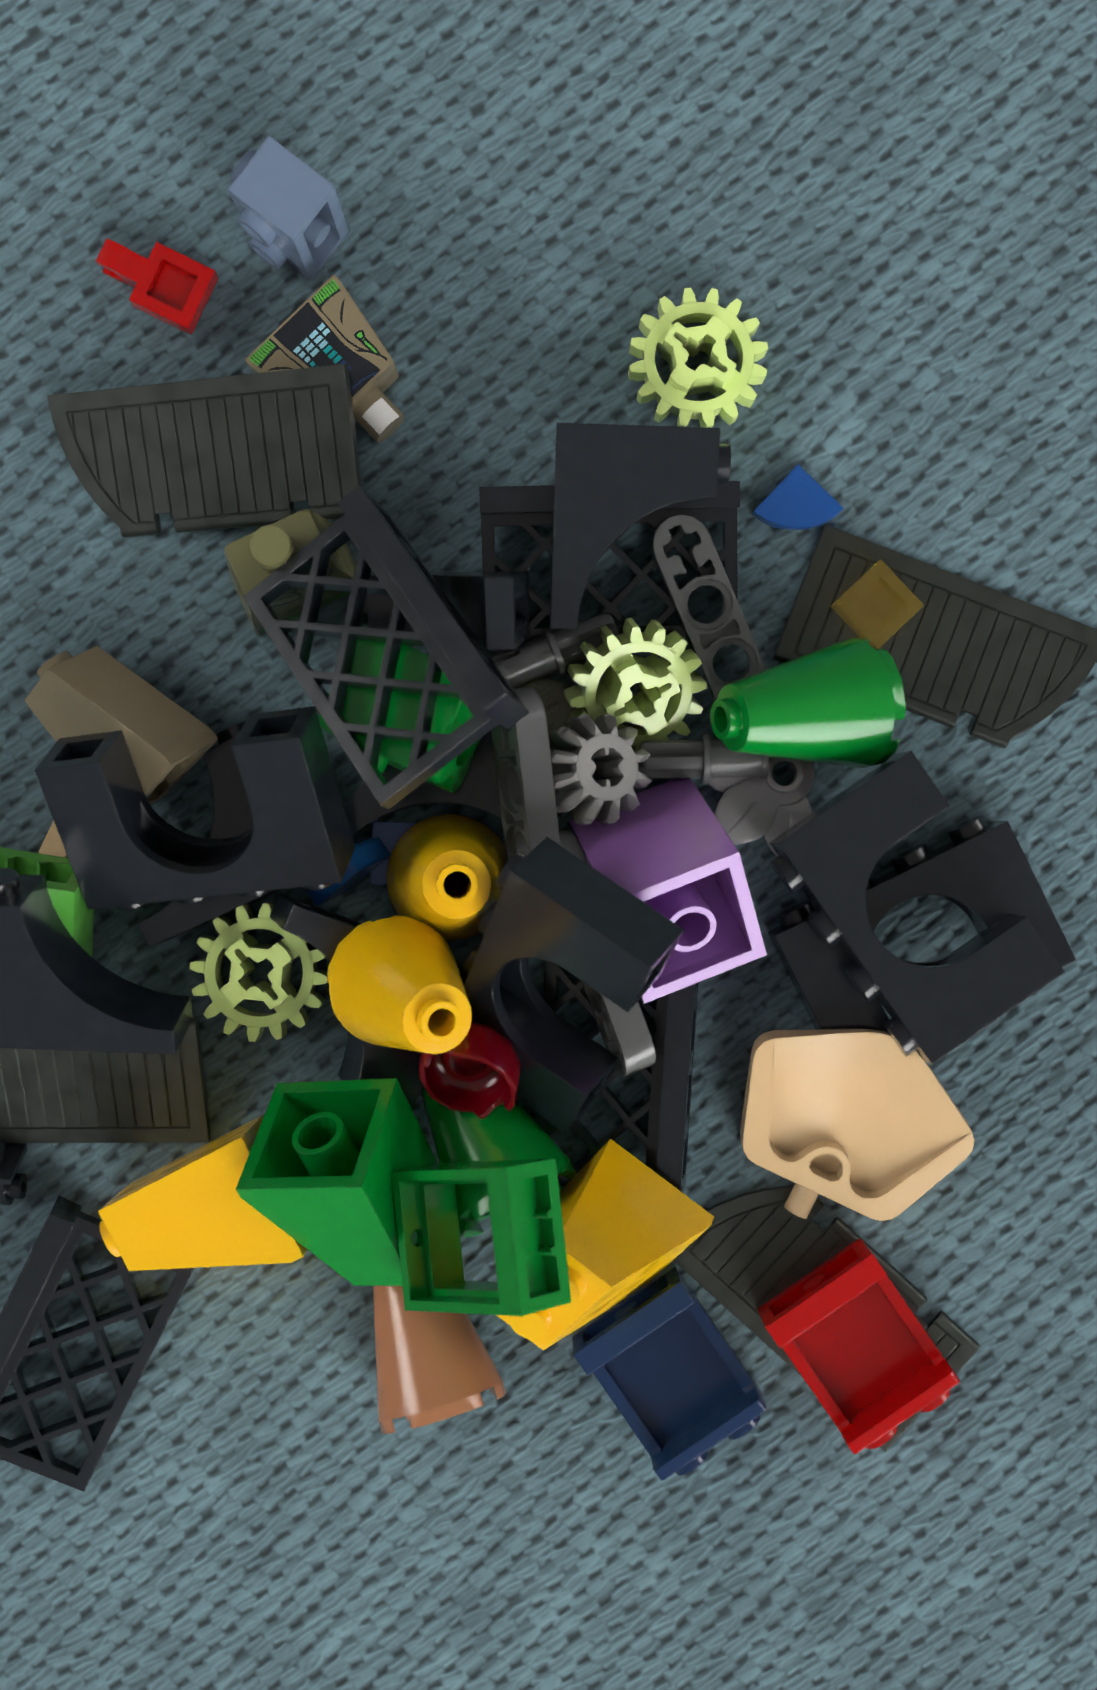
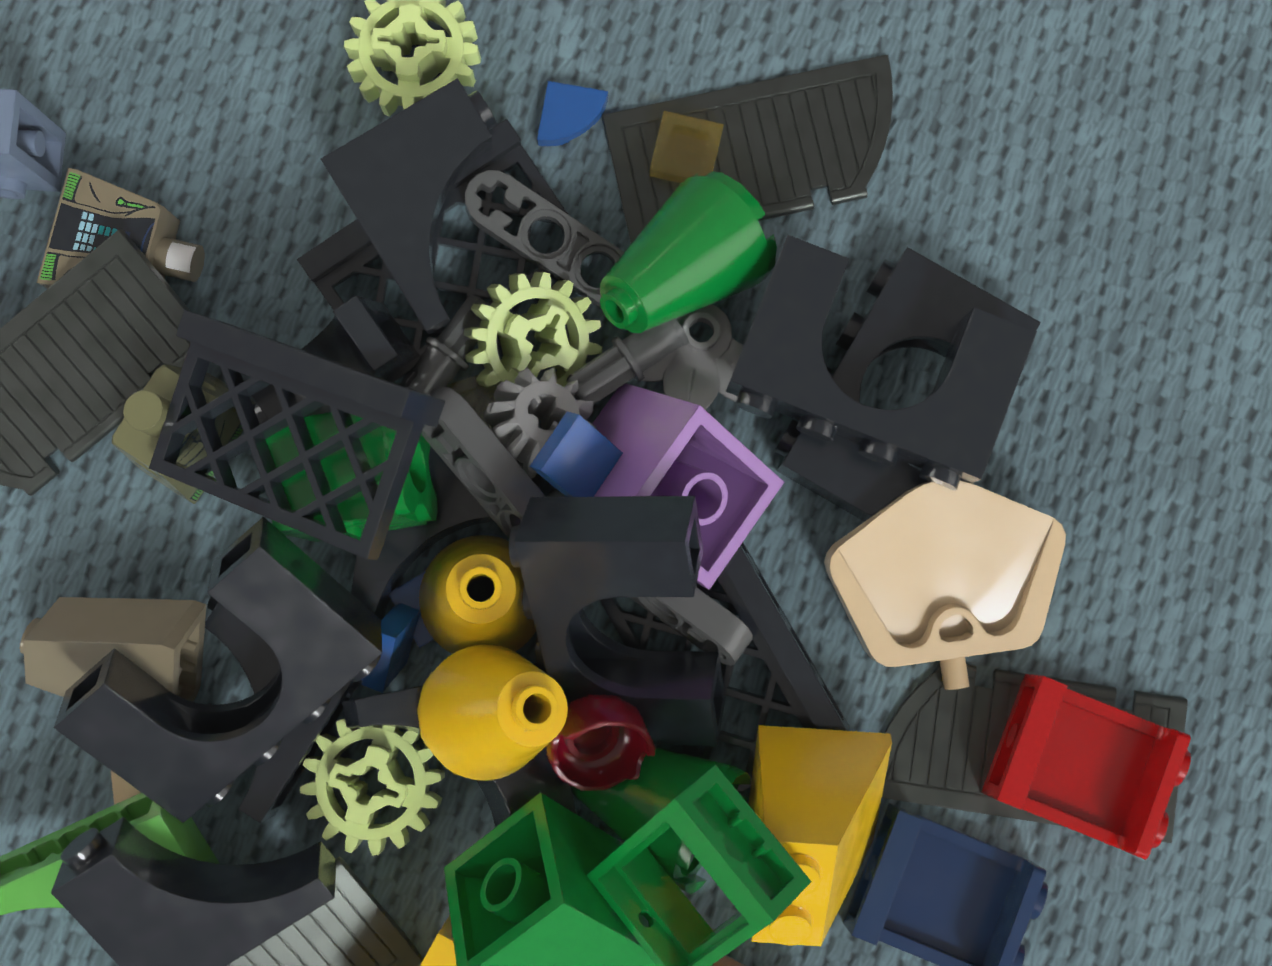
camera: 30 degrees left, 5 degrees down
(606, 824) = (576, 457): none -> blue tile

